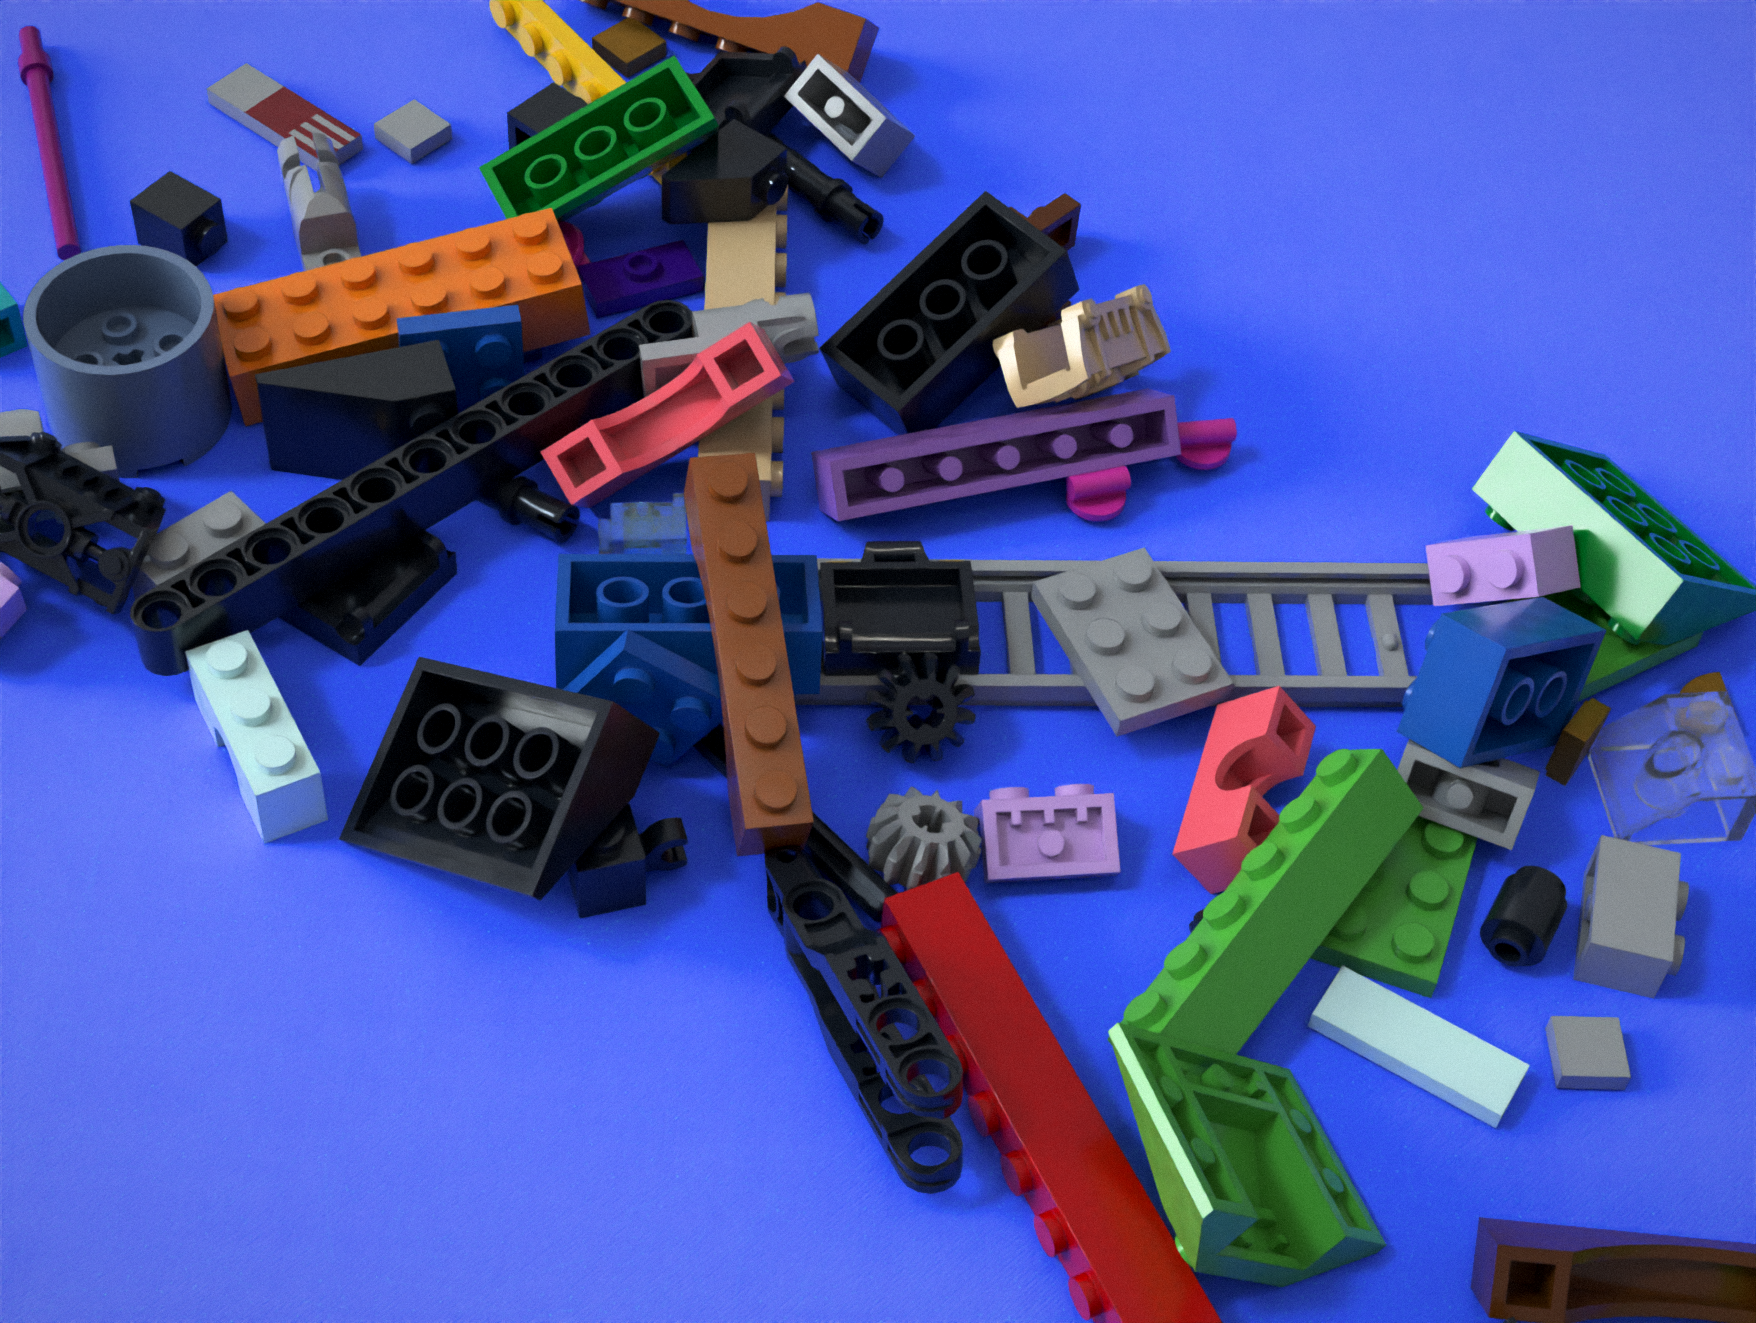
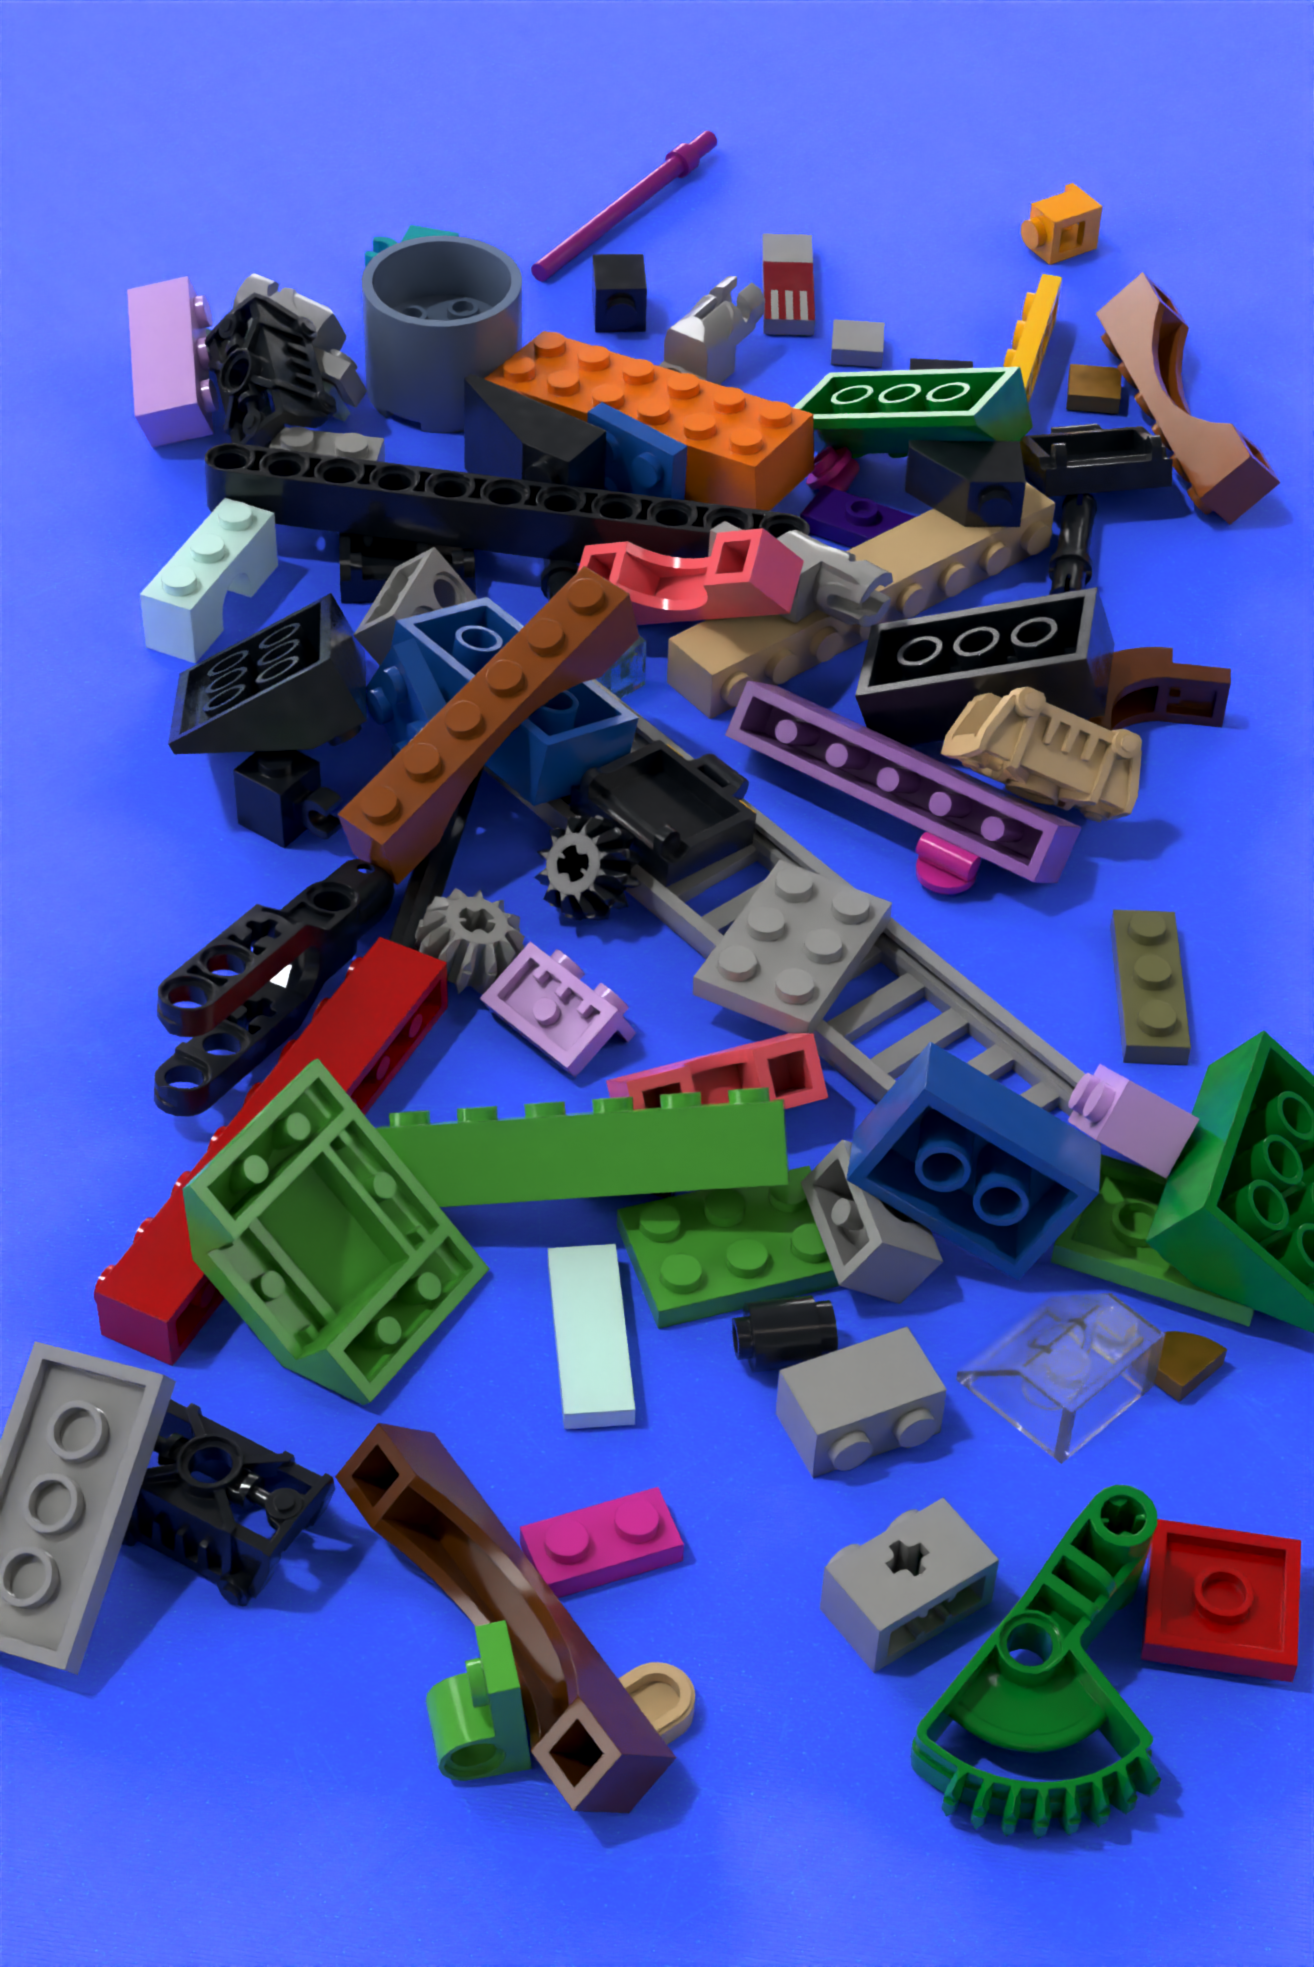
camera: 55 degrees right, 5 degrees down
(478, 617) = (411, 590): none -> light grey brick
(849, 116) = (1157, 519): brick -> none
(1206, 442) = (1079, 898): dark pink plate -> none
(1320, 469) = (1149, 987): none -> olive plate
(1576, 740) = (1023, 1281): pearl gold tile -> none
(1587, 1052) = (696, 1449): light grey tile -> none
(1642, 1171) = (603, 1542): none -> dark pink plate

